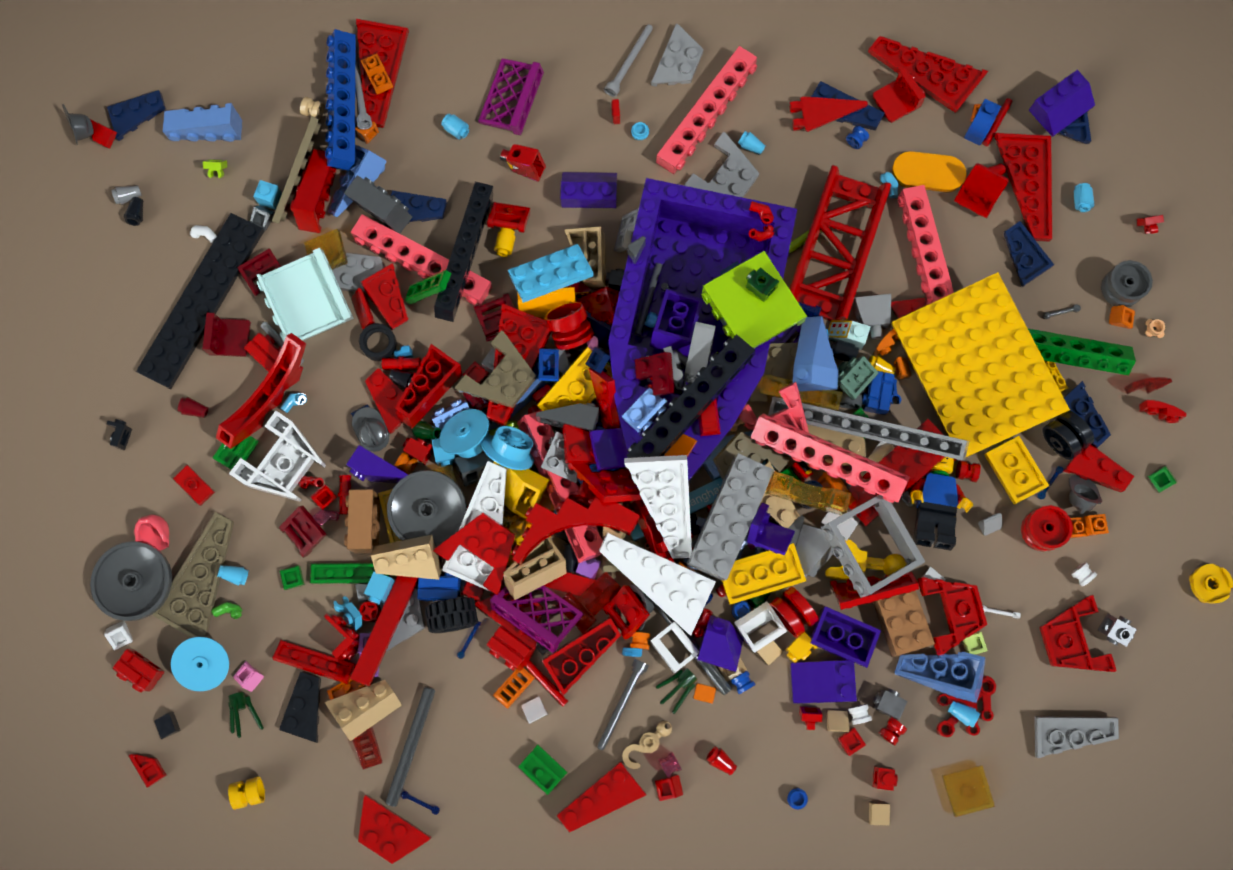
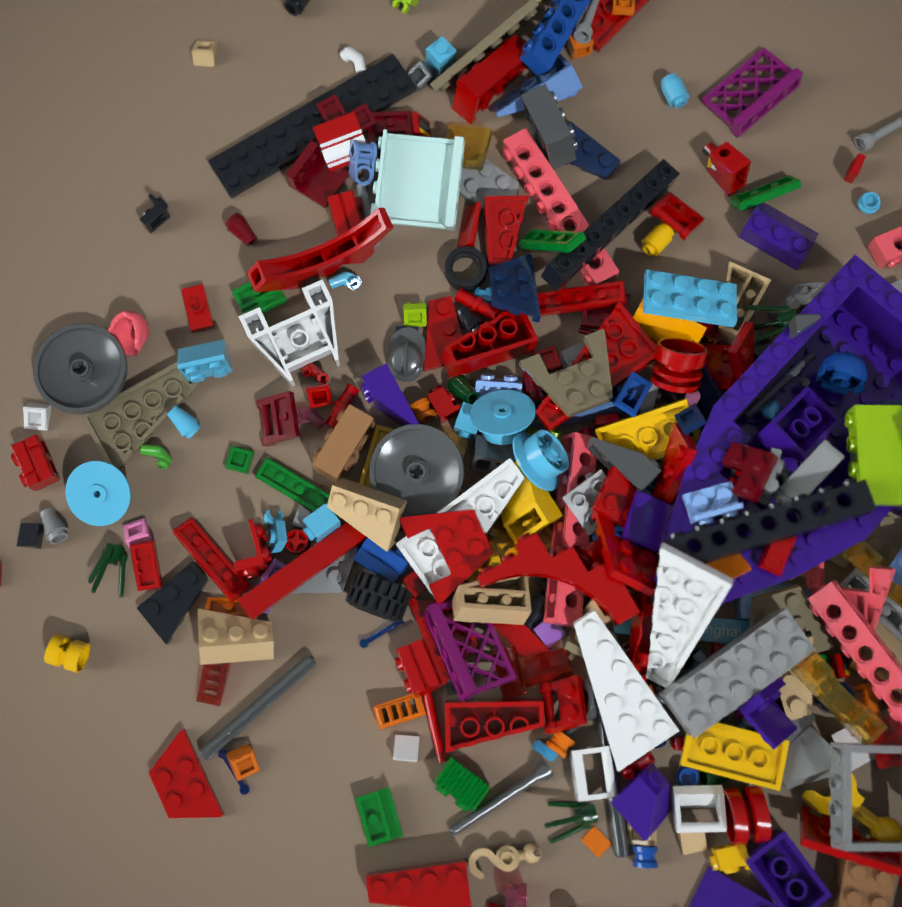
camera: 30 degrees right, 0 degrees up
(85, 291) = (204, 53): none -> tan slope
(181, 709) = (54, 528): none -> light grey cone
(223, 520) = (204, 361): none -> medium azure slope
(225, 287) = (332, 108): none -> dark red plate
(230, 301) = (335, 140): none -> red slope
(253, 303) = (362, 157): none -> medium blue piece
(267, 695) = (146, 565): none -> red plate
(283, 255) = (421, 125): none -> slope
(359, 397) = (415, 314): none -> lime tile
(420, 335) = (514, 287): none -> dark blue wing
(422, 791) = (243, 762): none -> orange slope
(473, 316) = (582, 298): none -> red tile
(562, 165) = (765, 192): none -> green tile
(587, 711) = (461, 784): none -> green brick
(607, 287) = (742, 350): none -> red wing
(623, 249) = (782, 319): none -> dark green plant
(685, 266) = (842, 373): none -> blue cylinder

